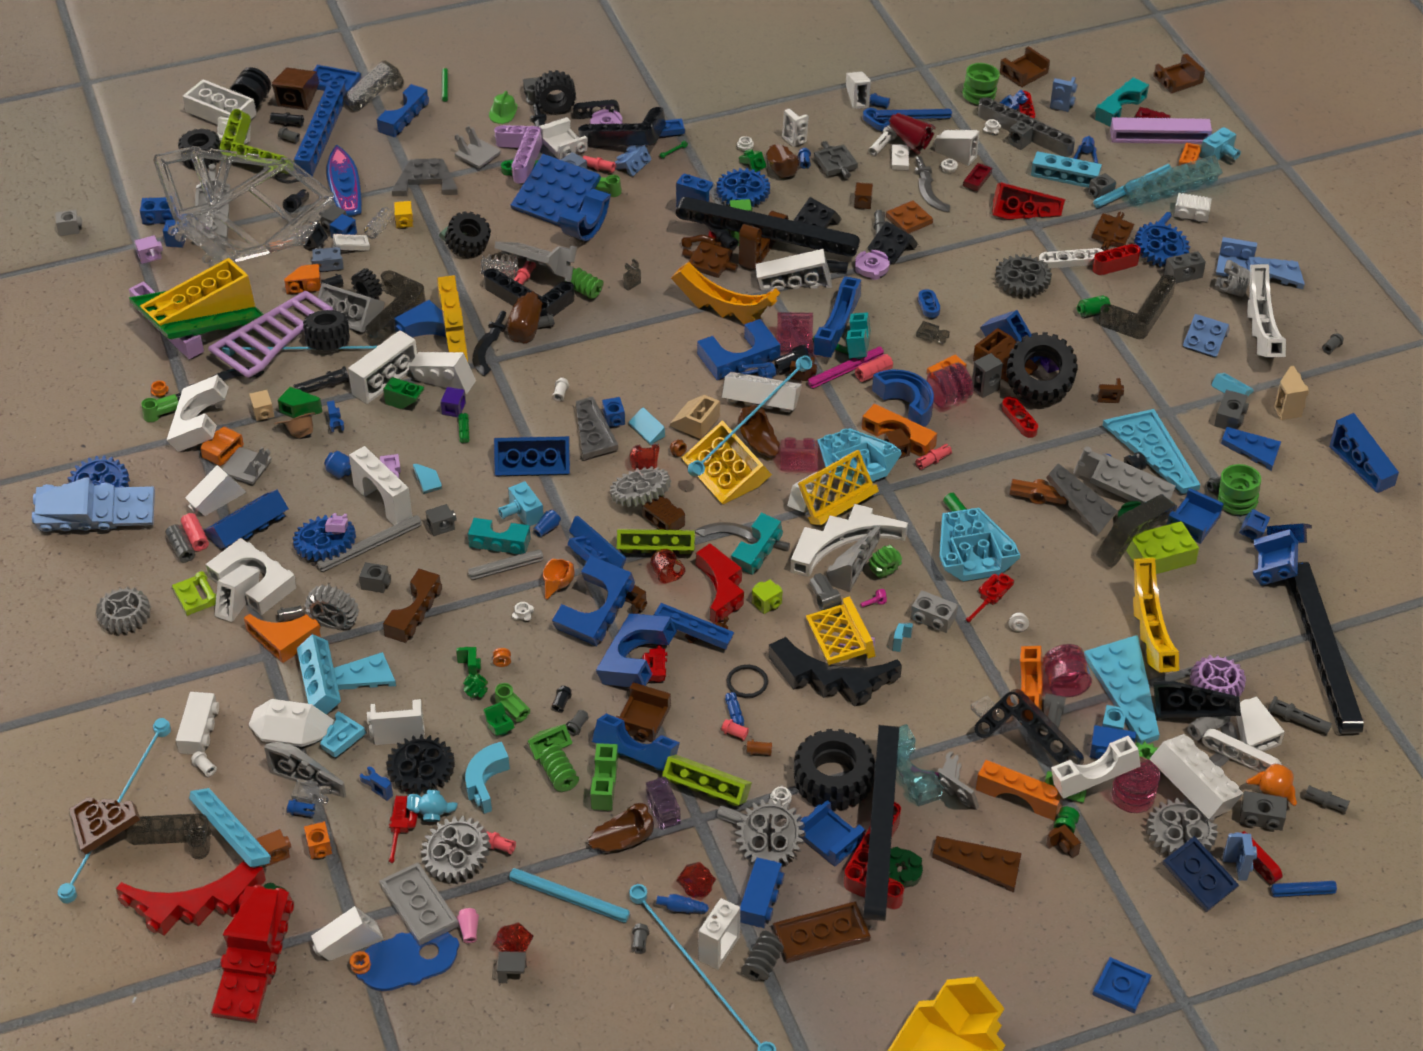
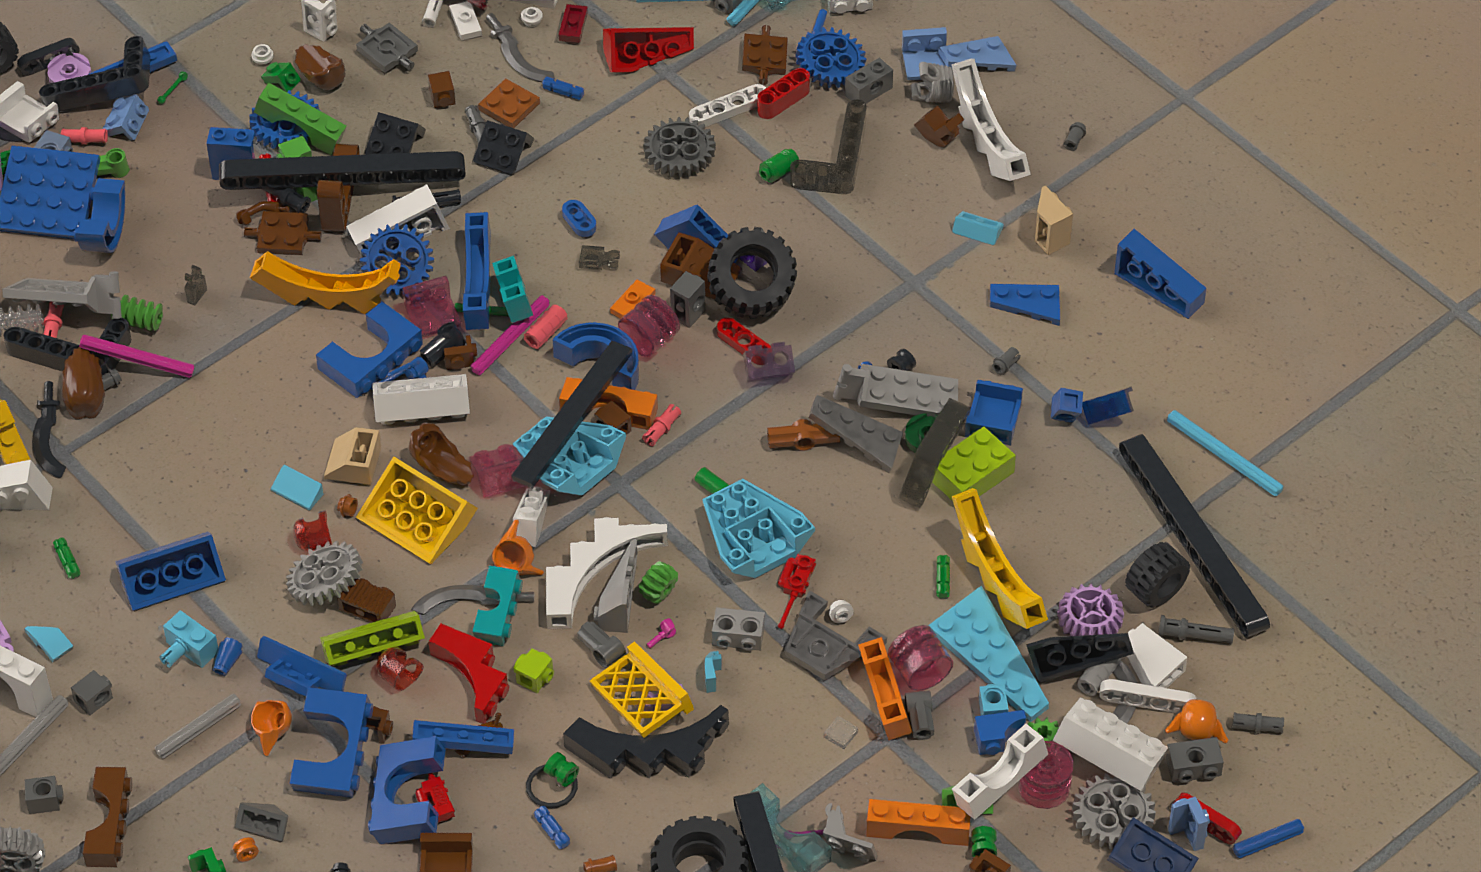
camera: 20 degrees left, 5 degrees up
(453, 402) = (39, 527): dark purple brick -> none
(513, 540) = (157, 699): teal arch -> none
(522, 641) = (262, 820): none -> dark grey slope
(523, 611) = (243, 776): white plate -> none
(561, 387) = (167, 464): white pin -> none
(570, 309) = (136, 356): none -> dark pink axle
(593, 429) = (233, 513): flat silver wing -> none
(613, 412) = (248, 481): blue brick -> none
(697, 467) = (389, 530): medium azure piece -> none
(734, 729) = (562, 852): coral pin -> none
(757, 670) = (561, 769): none -> green wheel
(765, 198) = (279, 105): none -> bright green arch
(786, 511) = (515, 553): none -> orange piece
(794, 285) = (408, 243): none -> blue gear
(804, 155) = (344, 50): blue pin -> none
(841, 503) = (576, 521): yellow fence -> none
(865, 266) = (488, 192): lavender plate -> none
(866, 428) = (571, 414): none -> black tile
(953, 217) = (563, 88): none -> blue axle
(992, 643) = (818, 646): none -> flat silver wing
(1031, 440) = (770, 367): none -> clear purple brick
(1032, 726) = (906, 740): black beam -> none
(1109, 620) = (943, 576): none -> green axle
(1110, 393) = (840, 278): reddish brown bracket -> none
(1148, 435) = (904, 324): medium azure wing -> none
(1206, 335) = (925, 168): medium blue bracket -> none
(1226, 310) = (938, 128): none -> reddish brown brick
(1231, 410) = (989, 260): dark grey brick -> none
(1239, 489) = (1034, 363): bright green wheel -> none
(1276, 557) = (1105, 440): blue panel -> none
(1282, 664) = (1157, 574): none -> black tyre
(1372, 595) = (1225, 453): none -> medium azure axle

